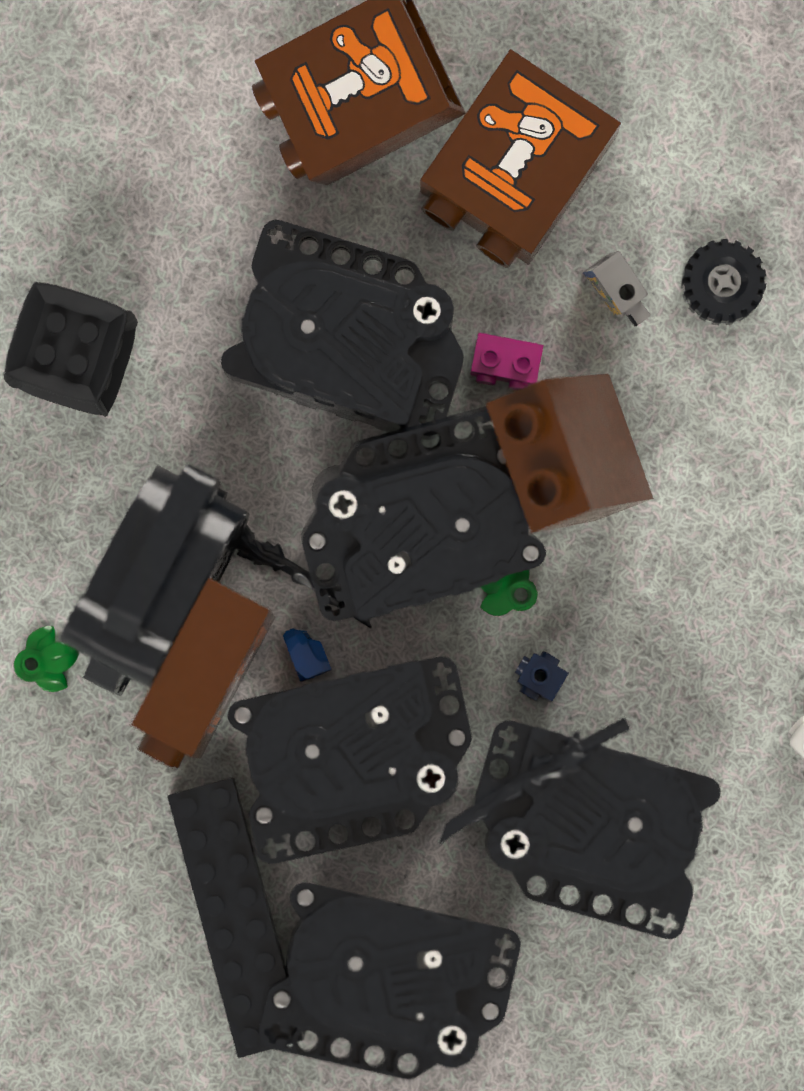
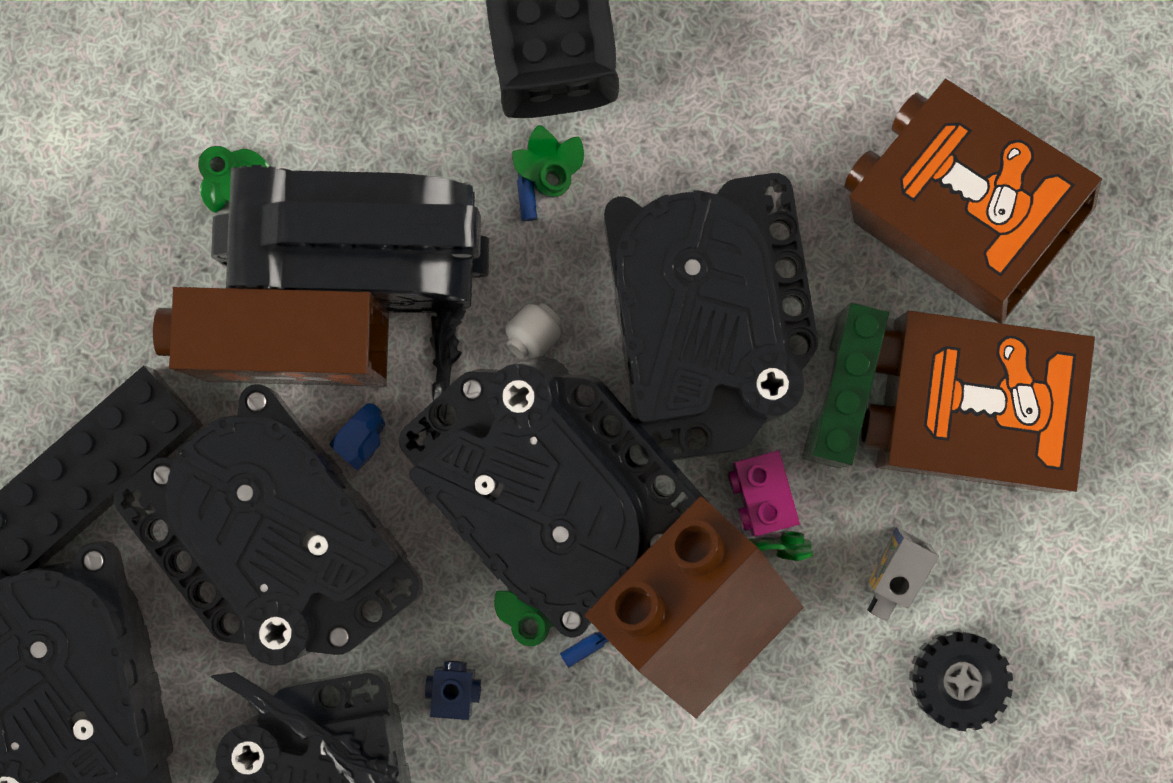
camera: 65 degrees right, 0 degrees up
(155, 399) = (549, 157): none -> green plate
(174, 430) = (526, 199): none -> blue piece
(289, 478) = (533, 331): none -> white head
(427, 231) = (857, 347): none -> dark green arch
(557, 360) = (788, 546): none -> green plate
(557, 556) = (583, 648): none -> blue piece

